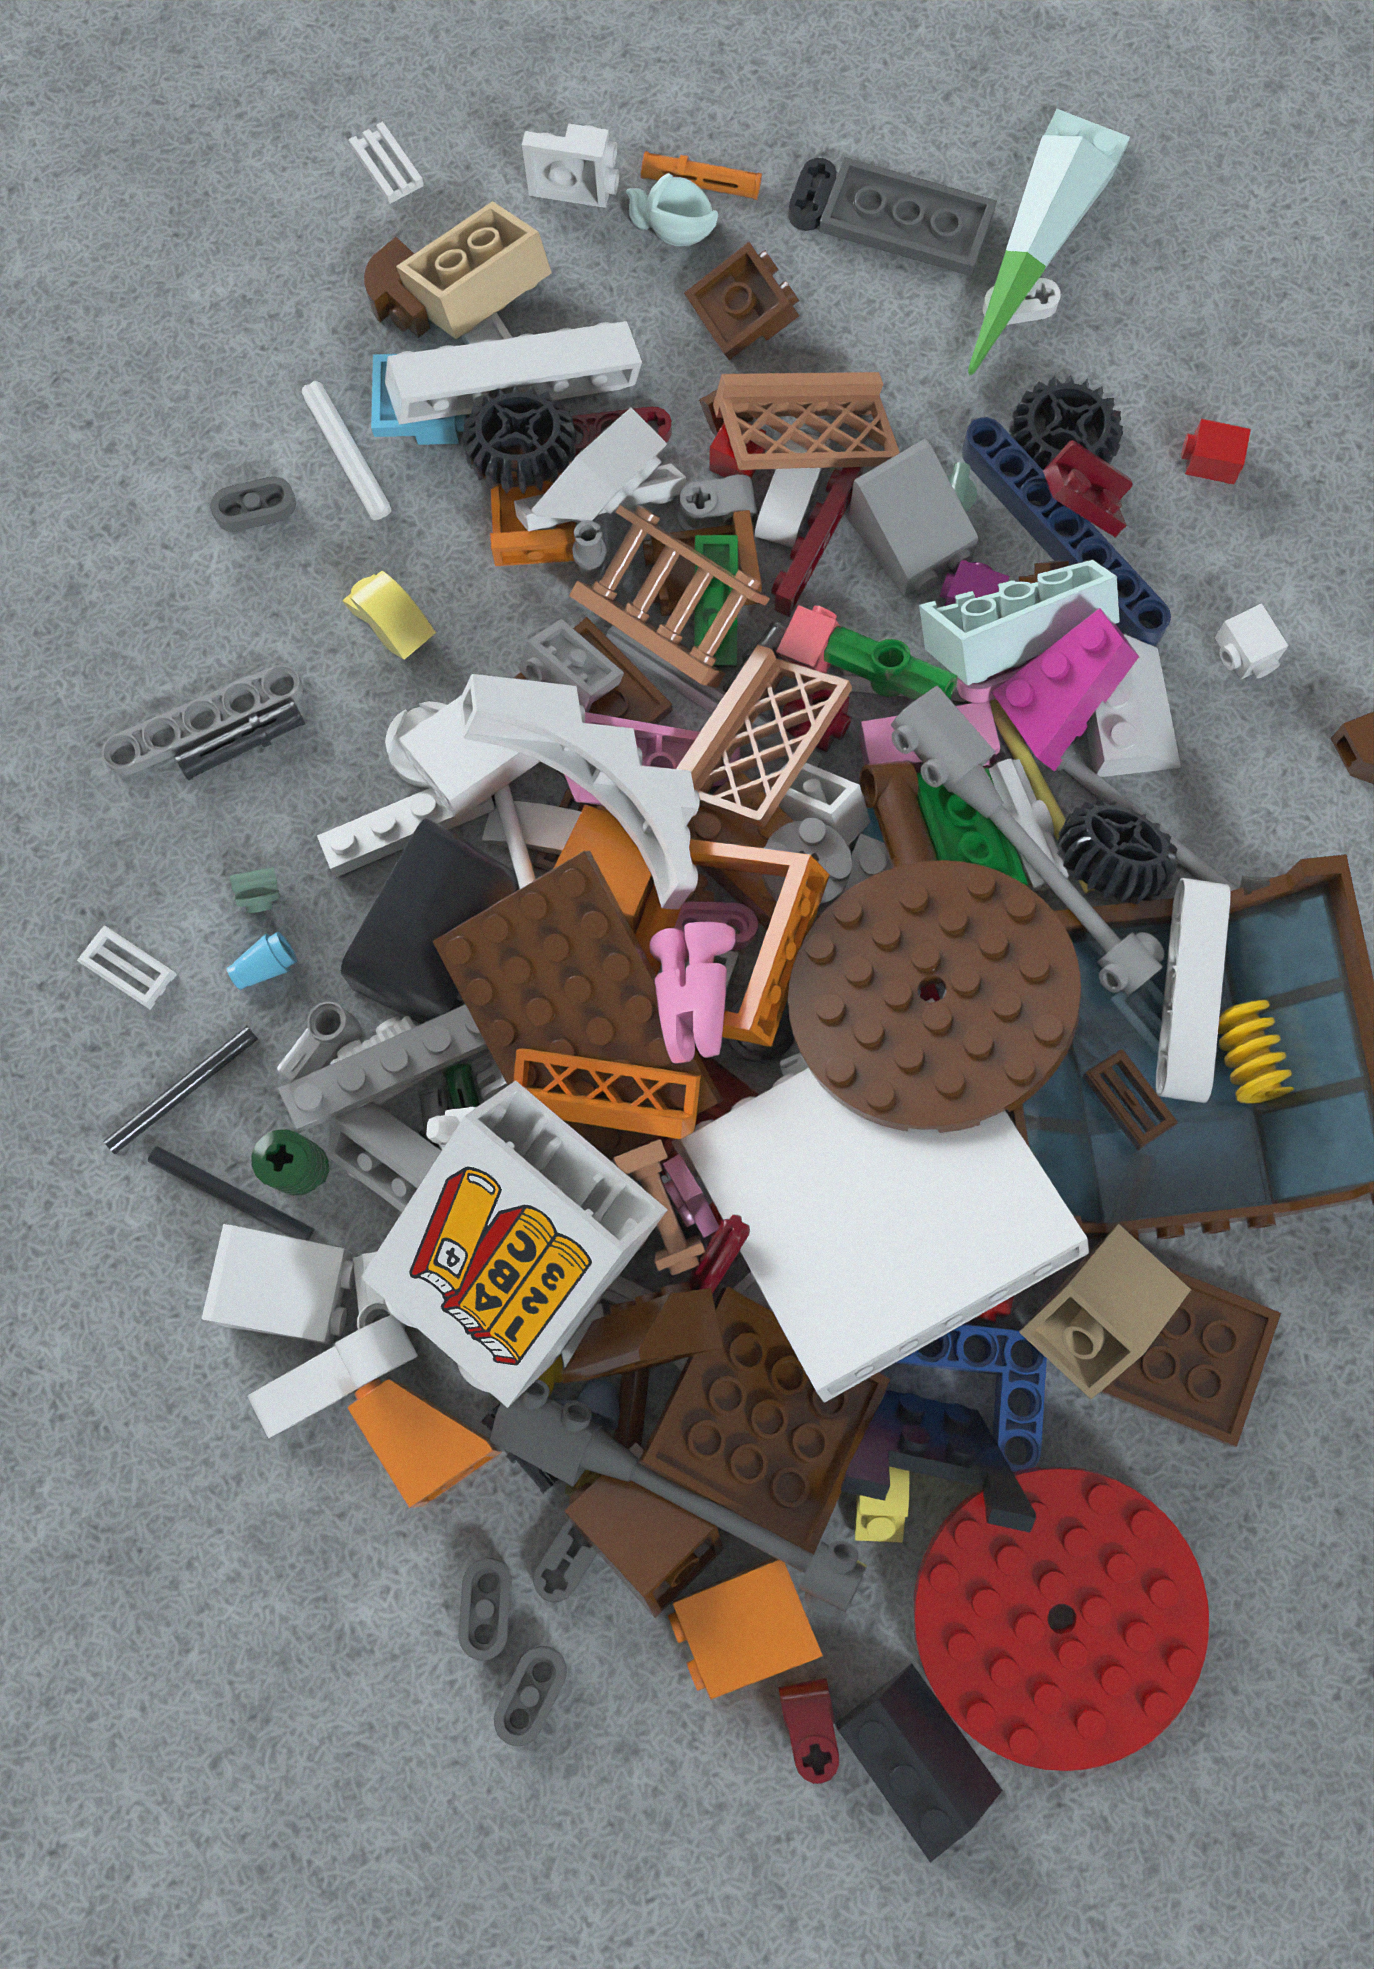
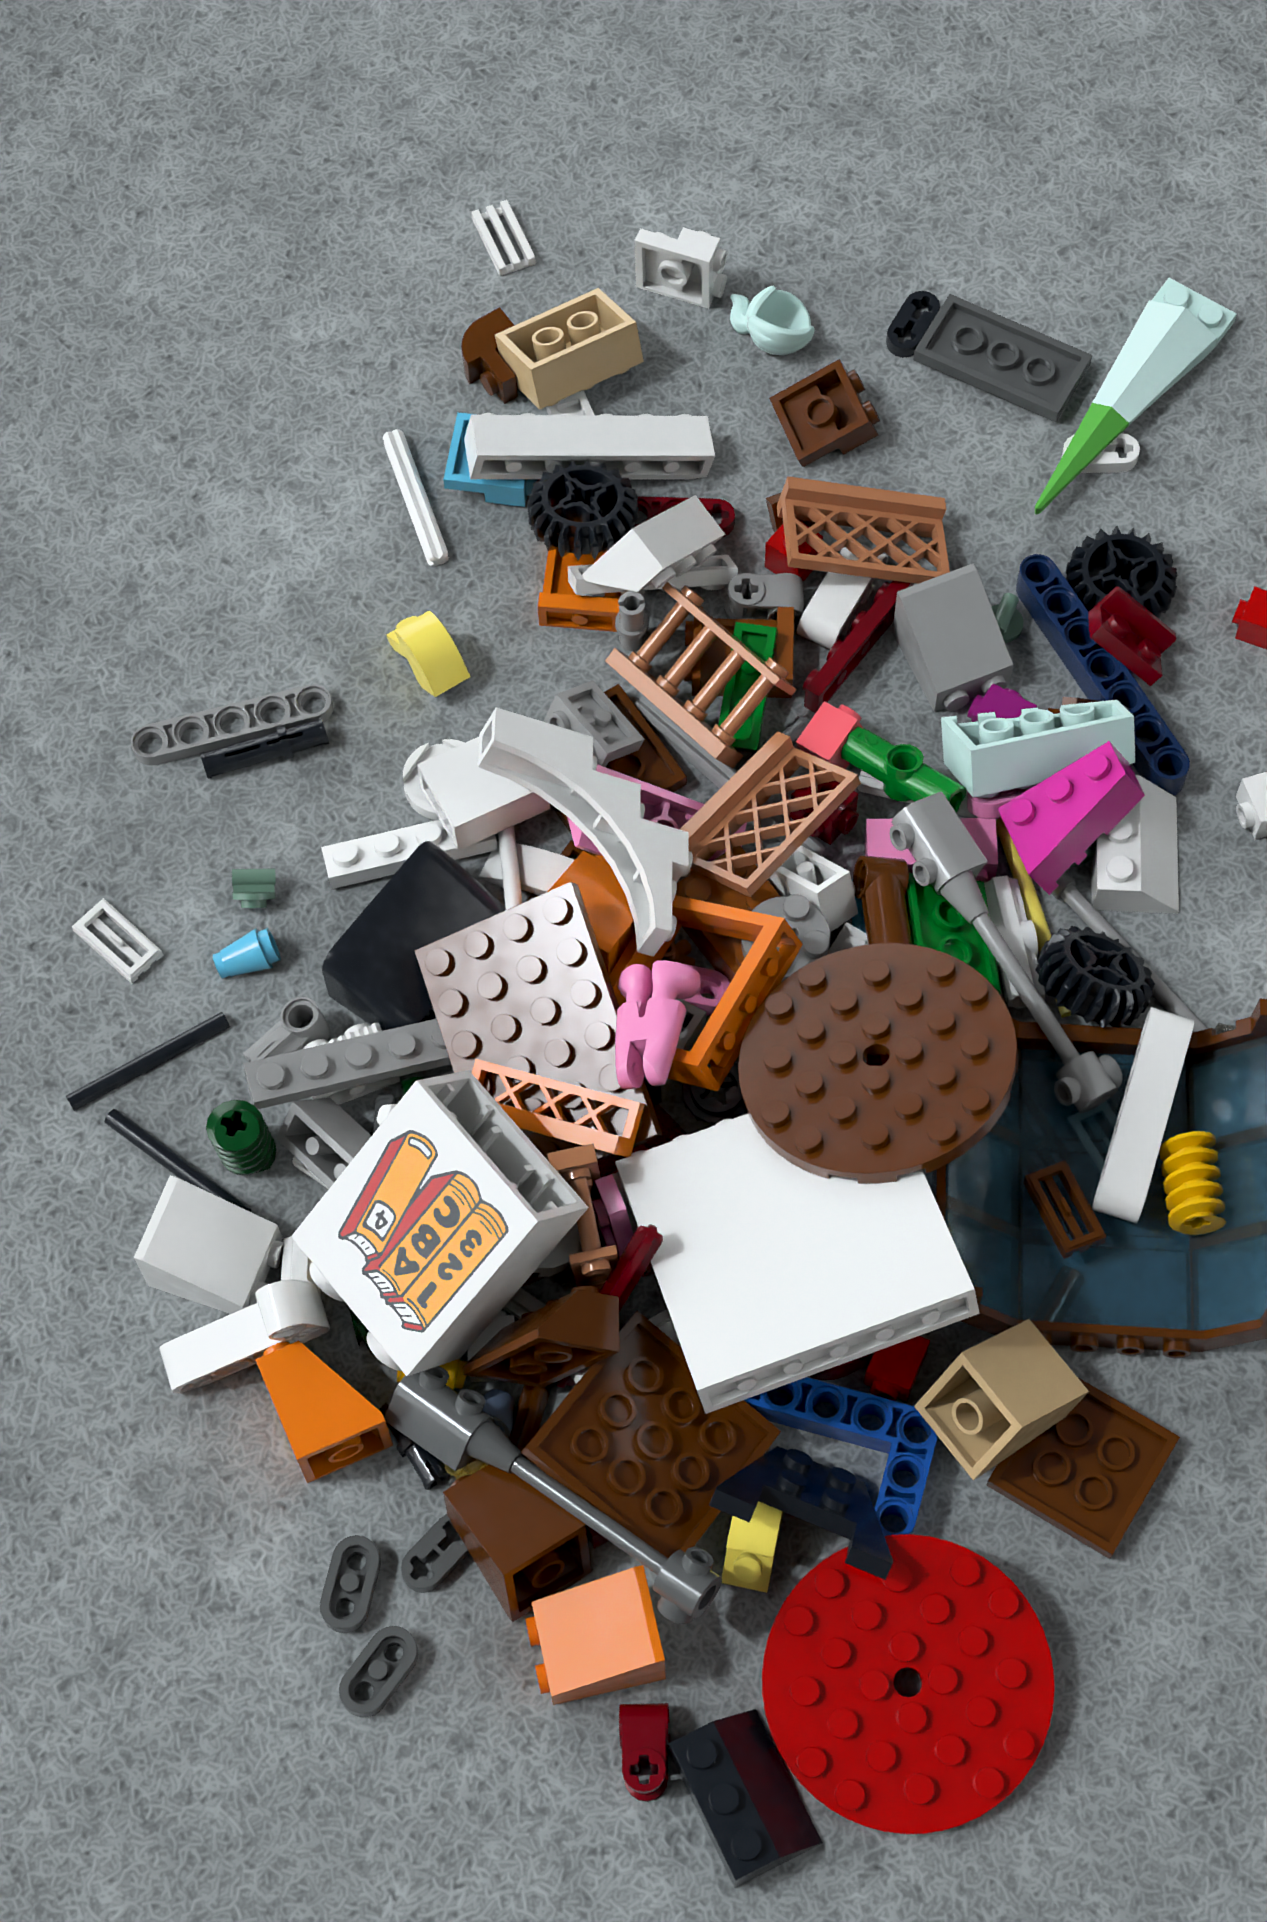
camera: 10 degrees right, 10 degrees down
(253, 500) = (317, 530): dark grey plate -> none
(703, 175) = (808, 291): orange pin -> none

